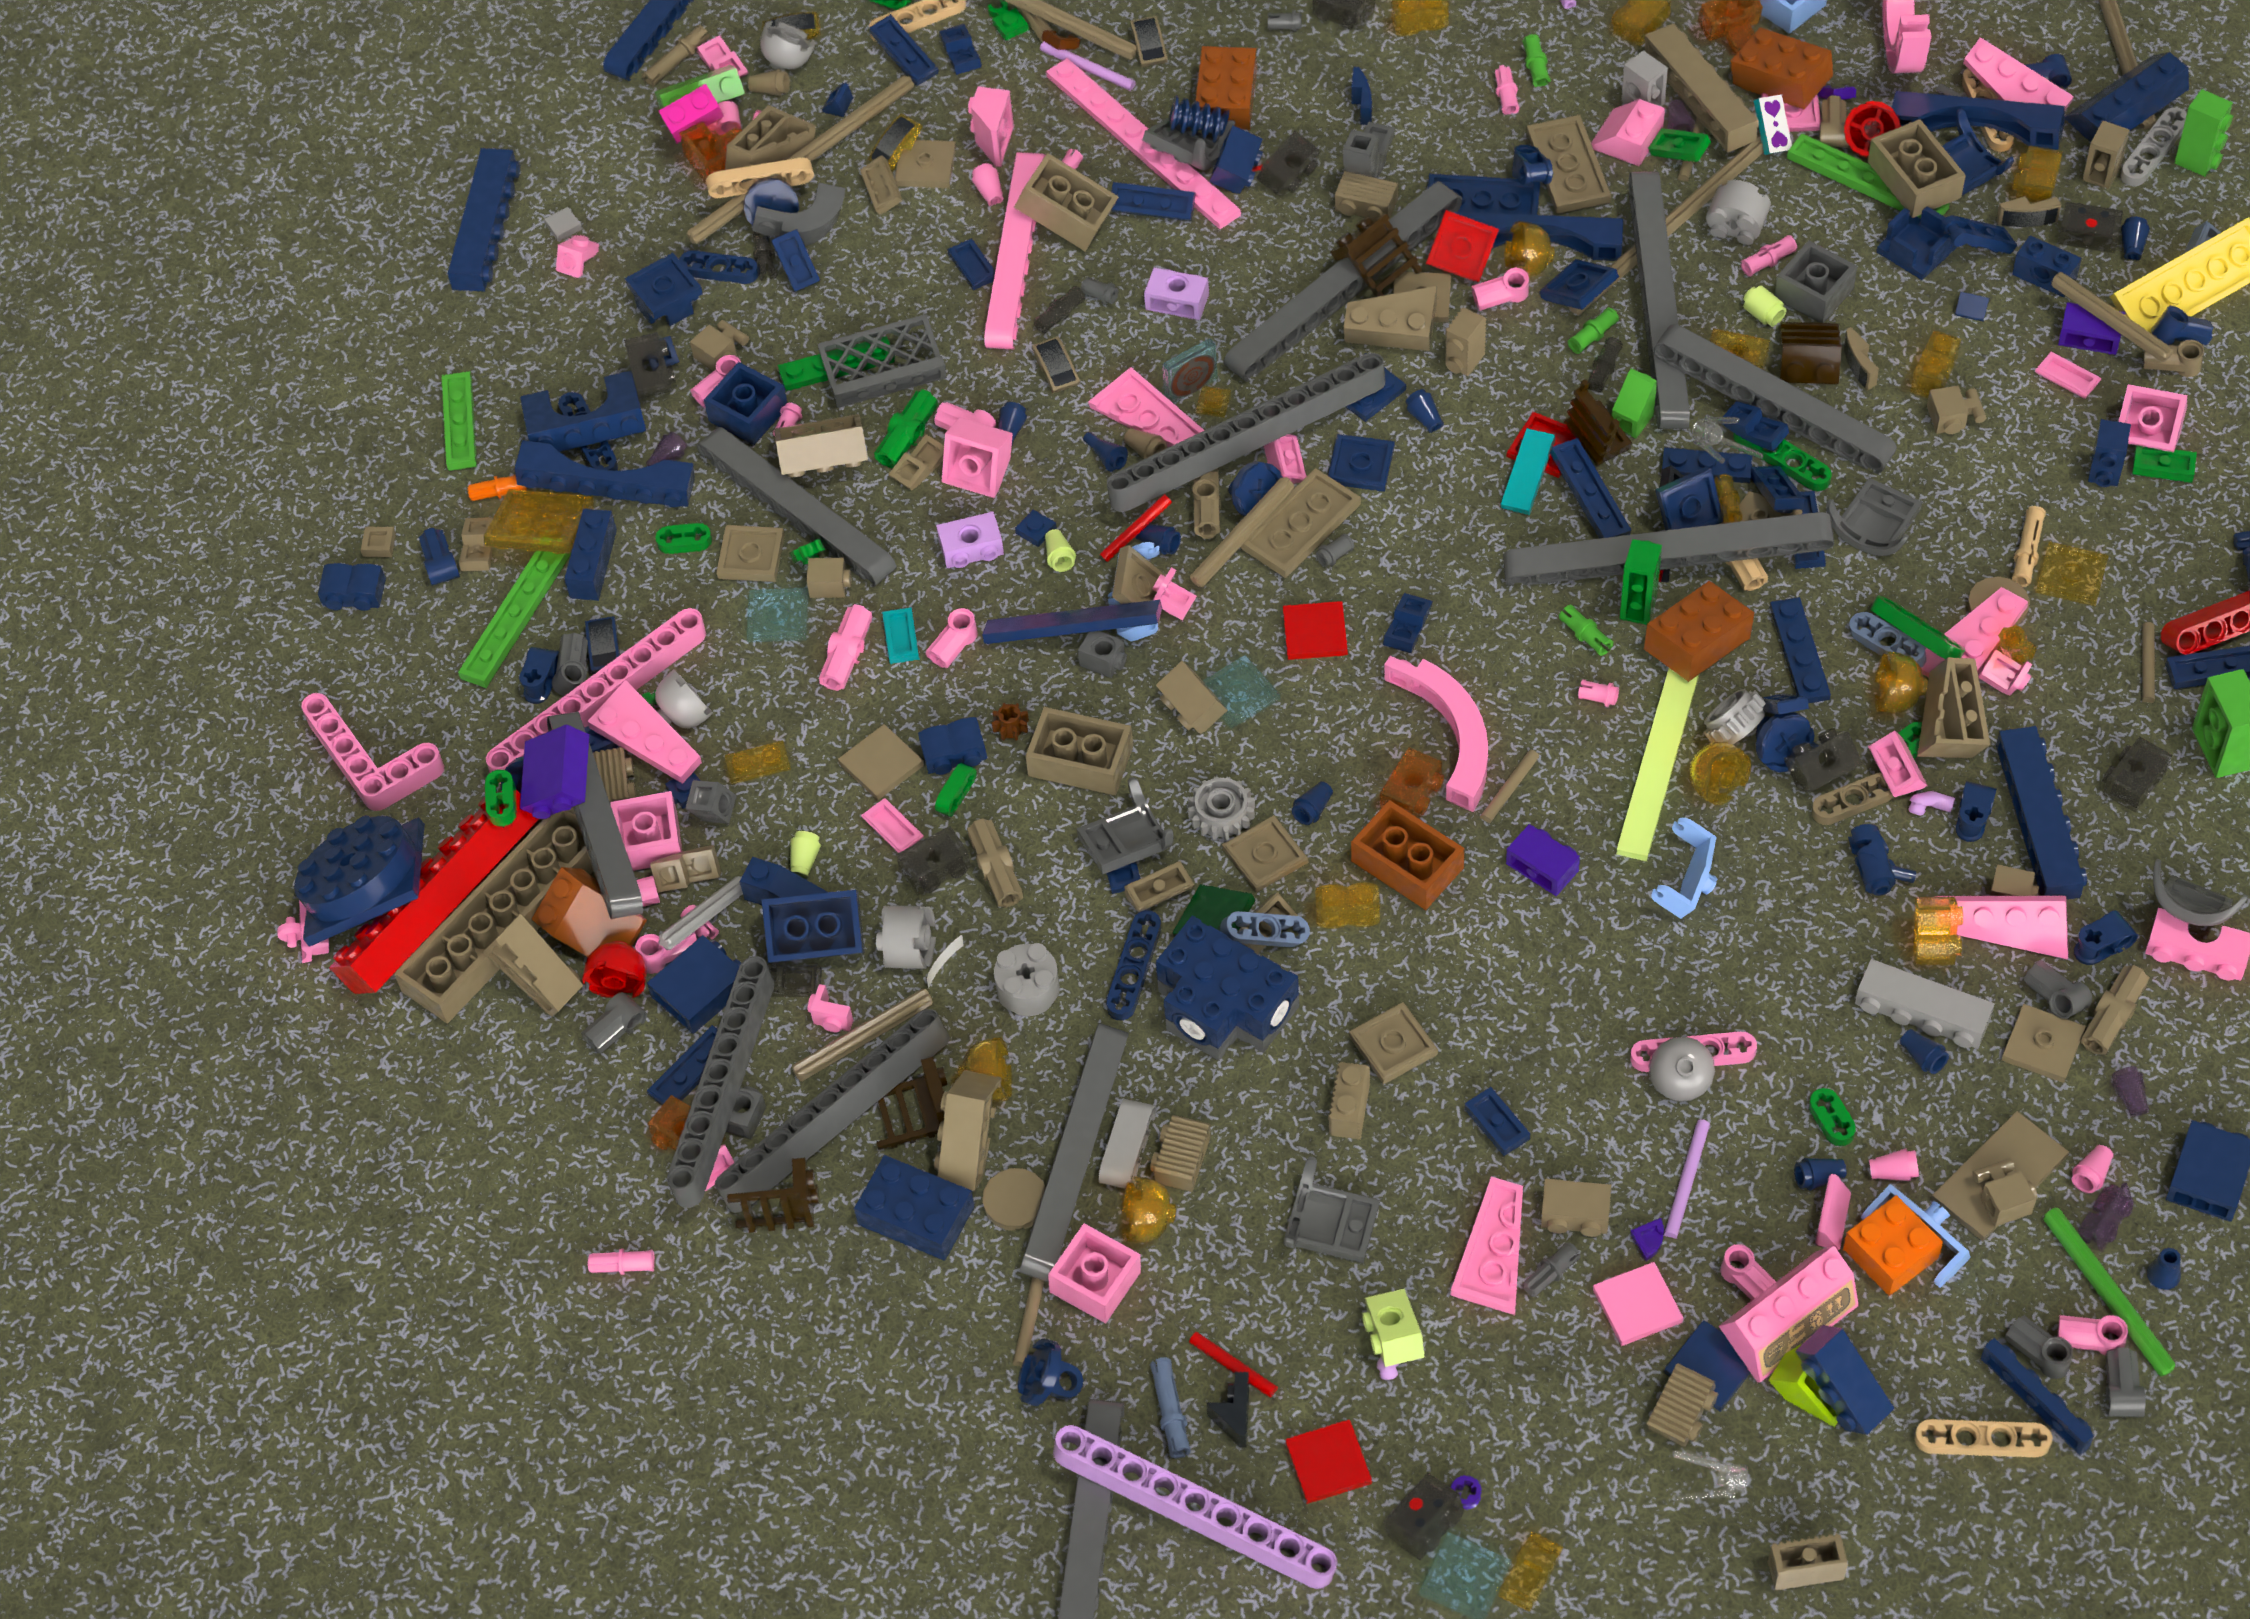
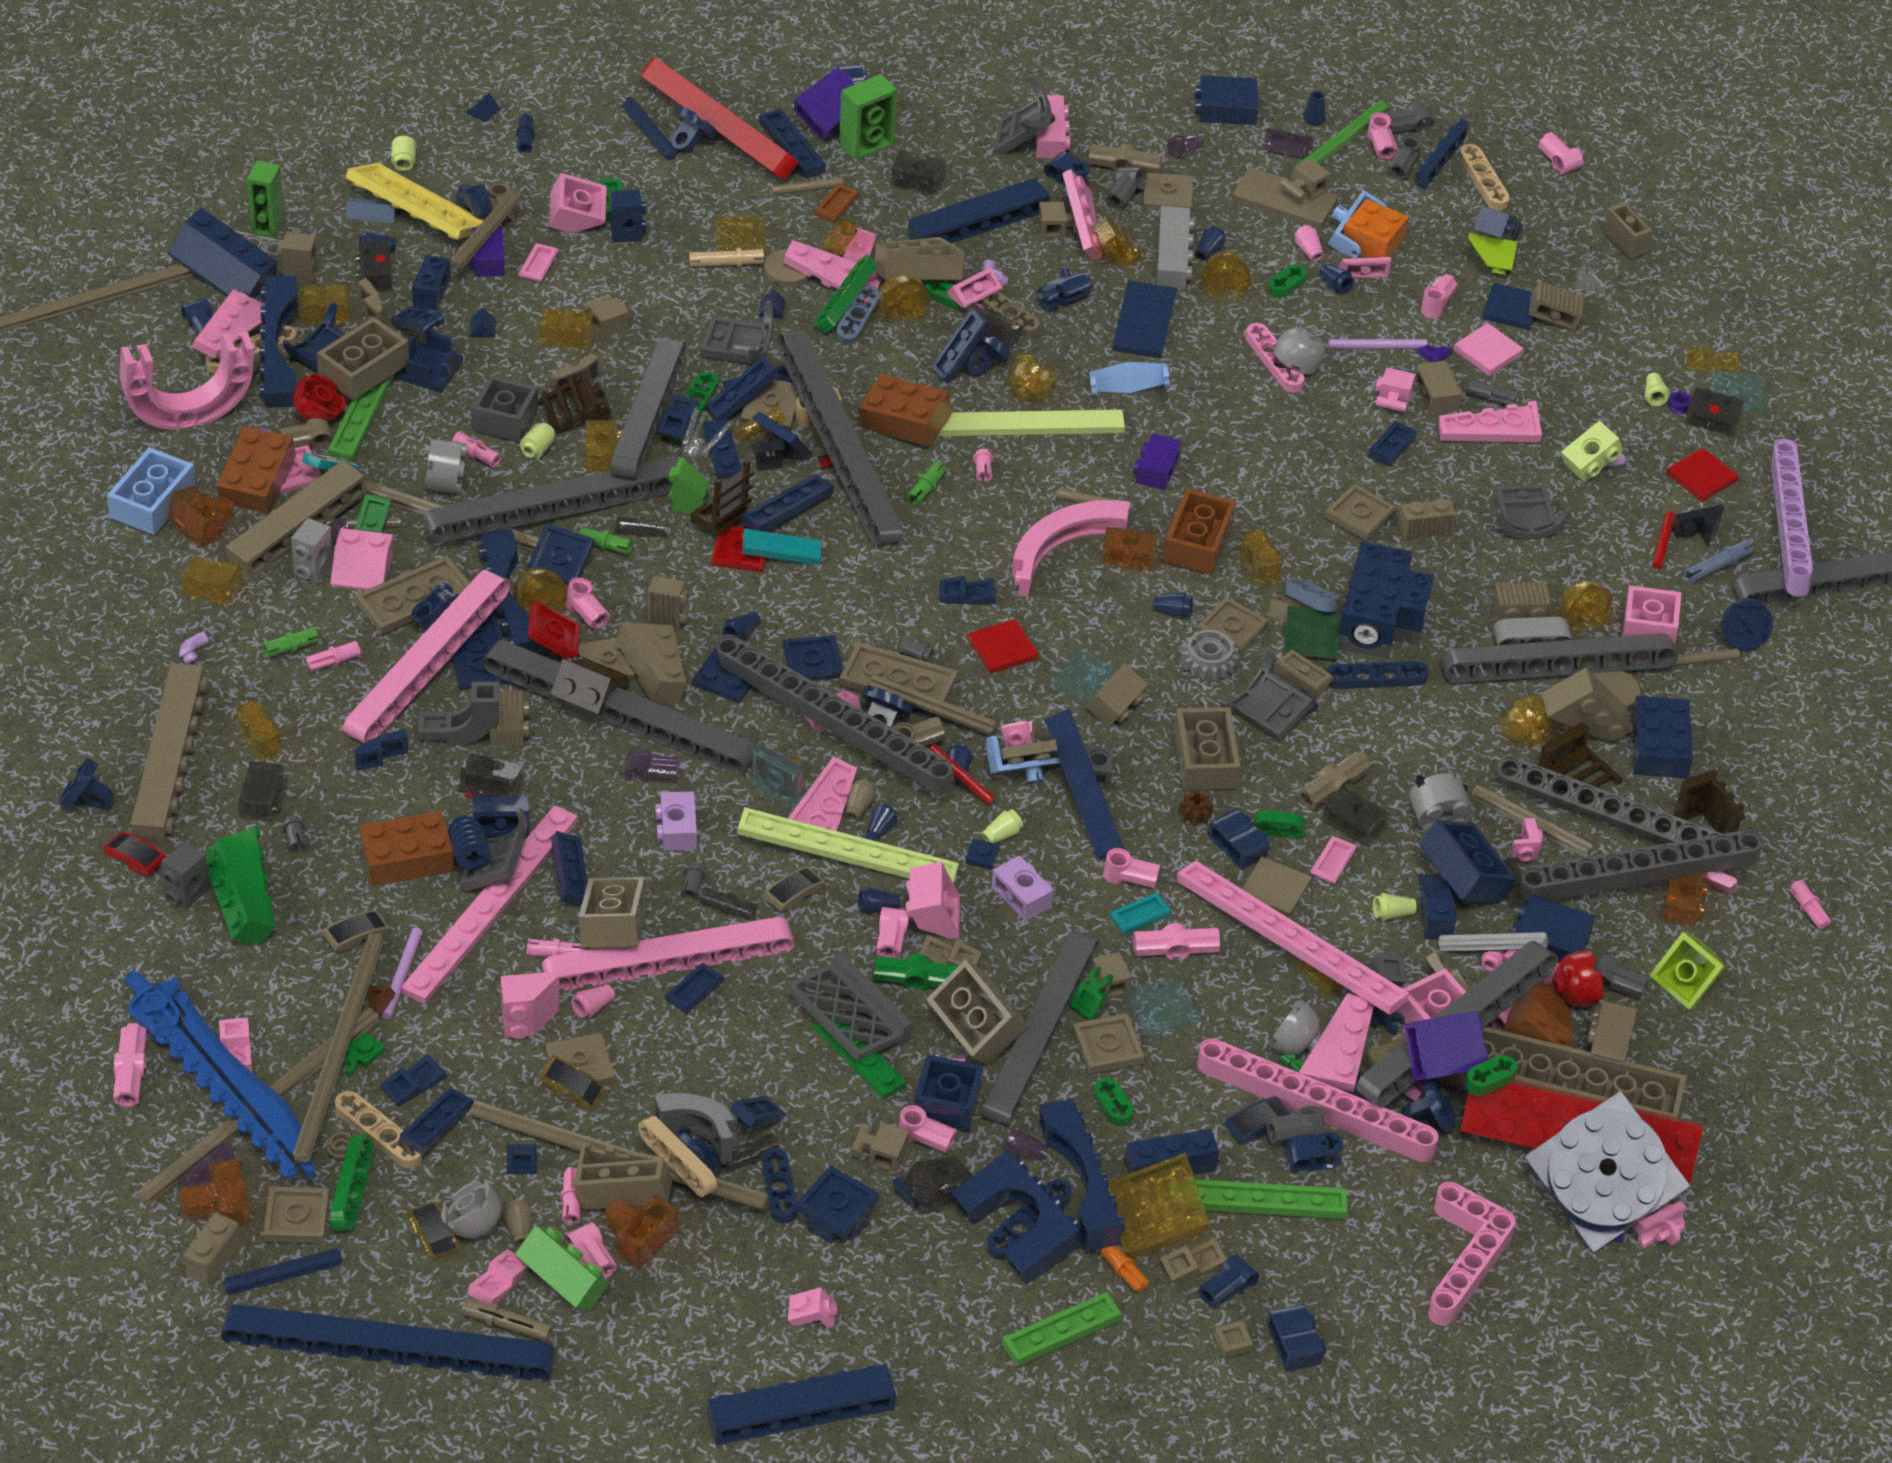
camera: 120 degrees left, 10 degrees down
(563, 224) = (773, 1339): light grey tile -> none
(590, 1095) = (1688, 969): none -> lime slope
(685, 1072) = (1626, 920): dark blue tile -> none
(691, 110) = (611, 1244): dark pink brick -> none
(792, 734) = (1293, 937): none -> bright pink plate
(881, 185) = (626, 1083): dark tan plate -> none
(1026, 979) = (1432, 725): light grey brick -> none
(1082, 414) = (836, 844): none -> yellowish green tile
(1259, 289) = (644, 766): none -> clear purple piece
(1465, 145) = (426, 657): none -> bright pink beam
(1497, 1470) = (1655, 390): none -> yellowish green cone
(1586, 1160) = (1395, 389): none -> bright pink brick
(1640, 581) = (885, 436): green brick -> none
(1734, 717) = (972, 382): light grey gear -> none
(1791, 1311) = (1458, 260): bright pink slope -> none
(1800, 650) = (886, 363): dark blue plate -> none
(1806, 936) = (1144, 319): none -> dark blue tile
(1854, 1037) = (1226, 270): none -> clear yellow cylinder
(1931, 572) = (778, 304): none -> dark blue slope
(1974, 811) = (990, 247): dark blue piece -> none
(1997, 1556) = (1561, 155): none -> bright pink piece
(2092, 1169) = (1257, 153): bright pink cone -> none
(2108, 683) = (836, 203): none -> dark orange tile

